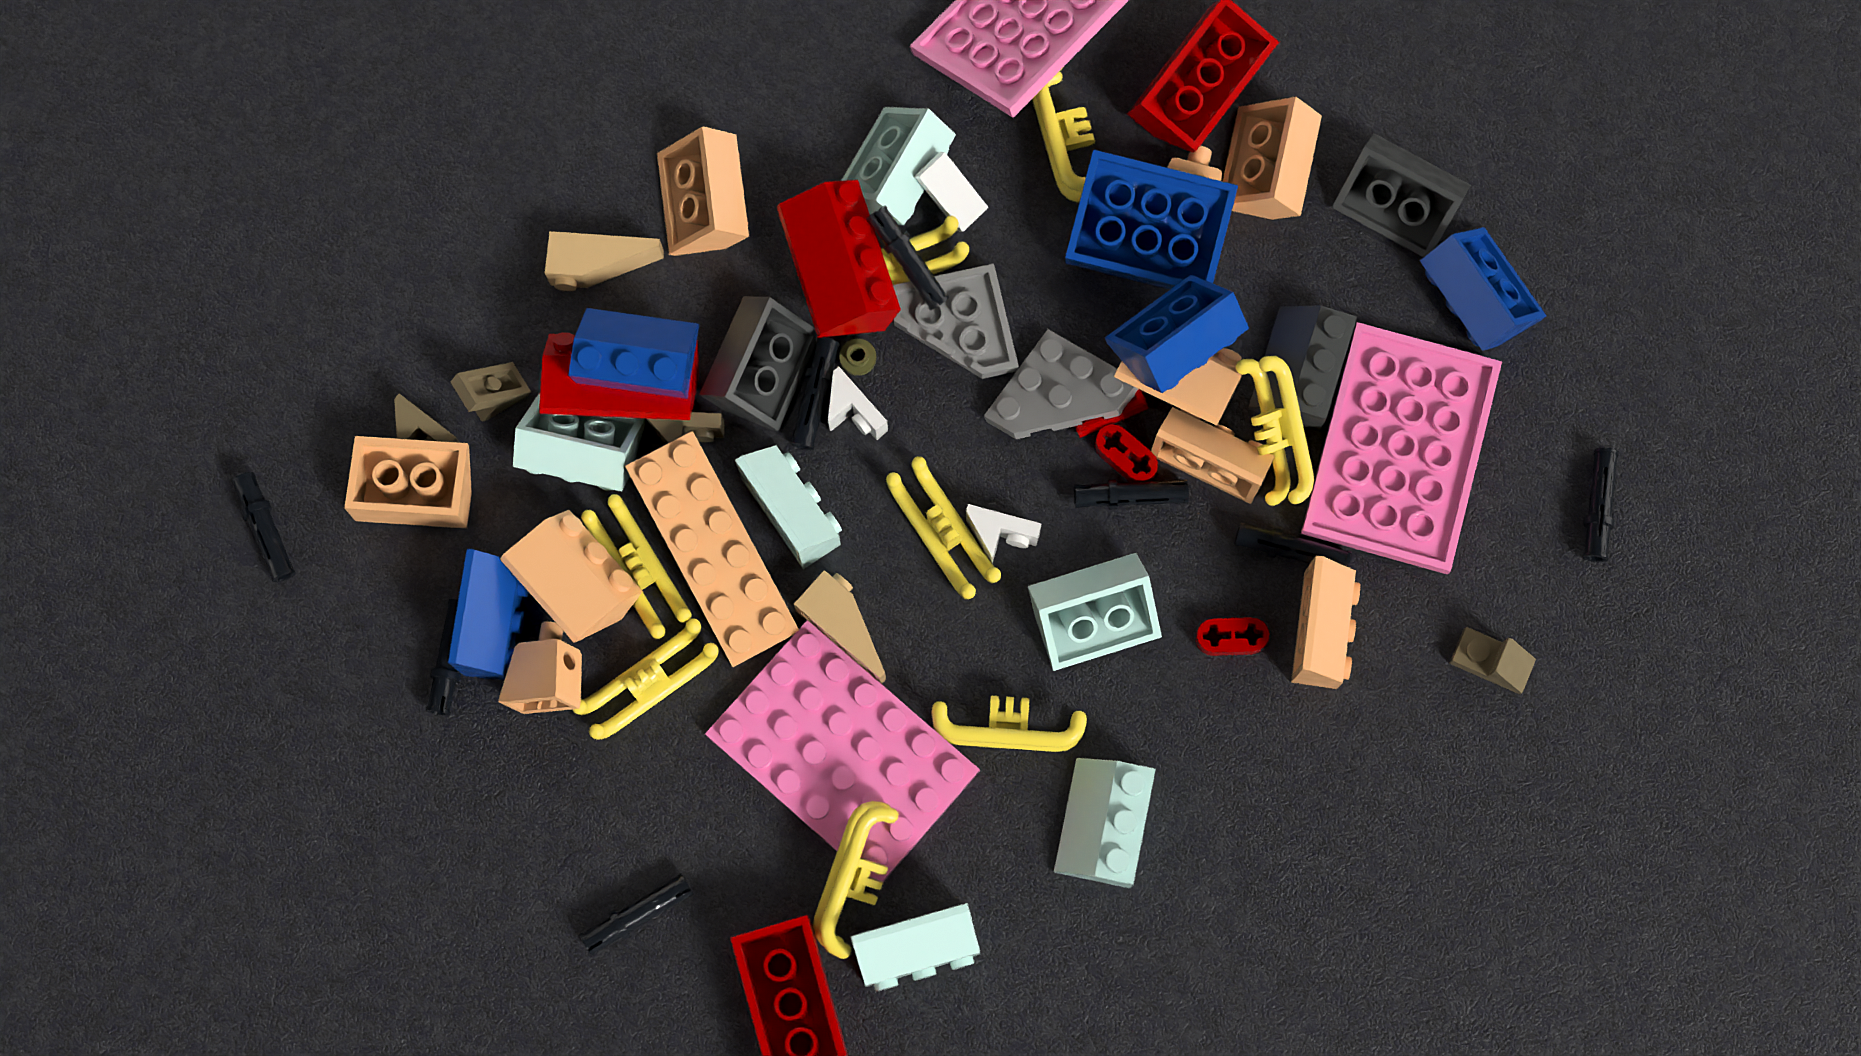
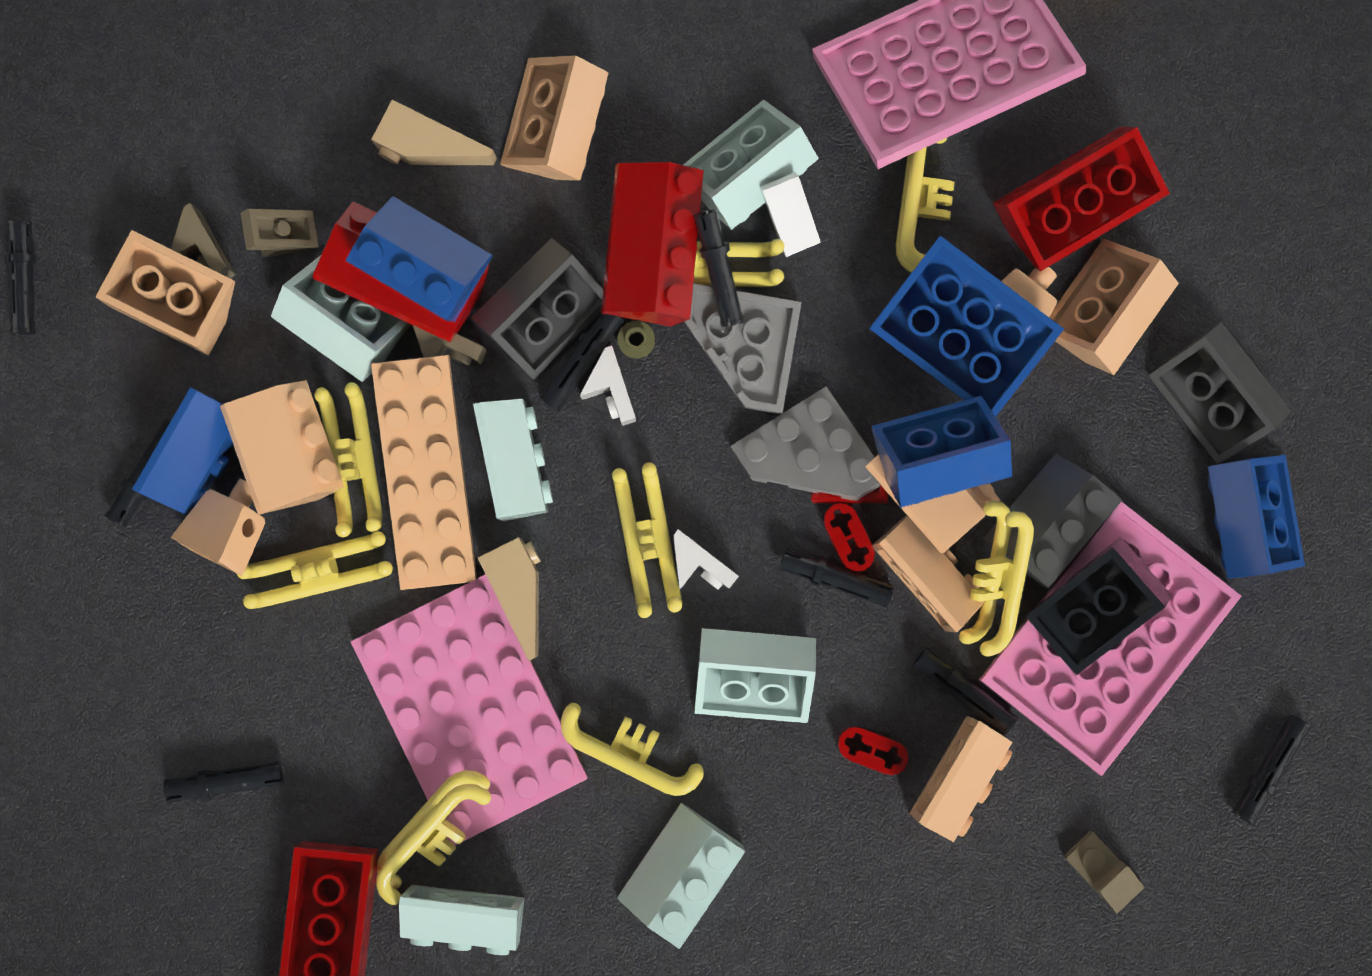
camera: 20 degrees right, 10 degrees up
(1377, 418) = (1099, 606): none -> black slope

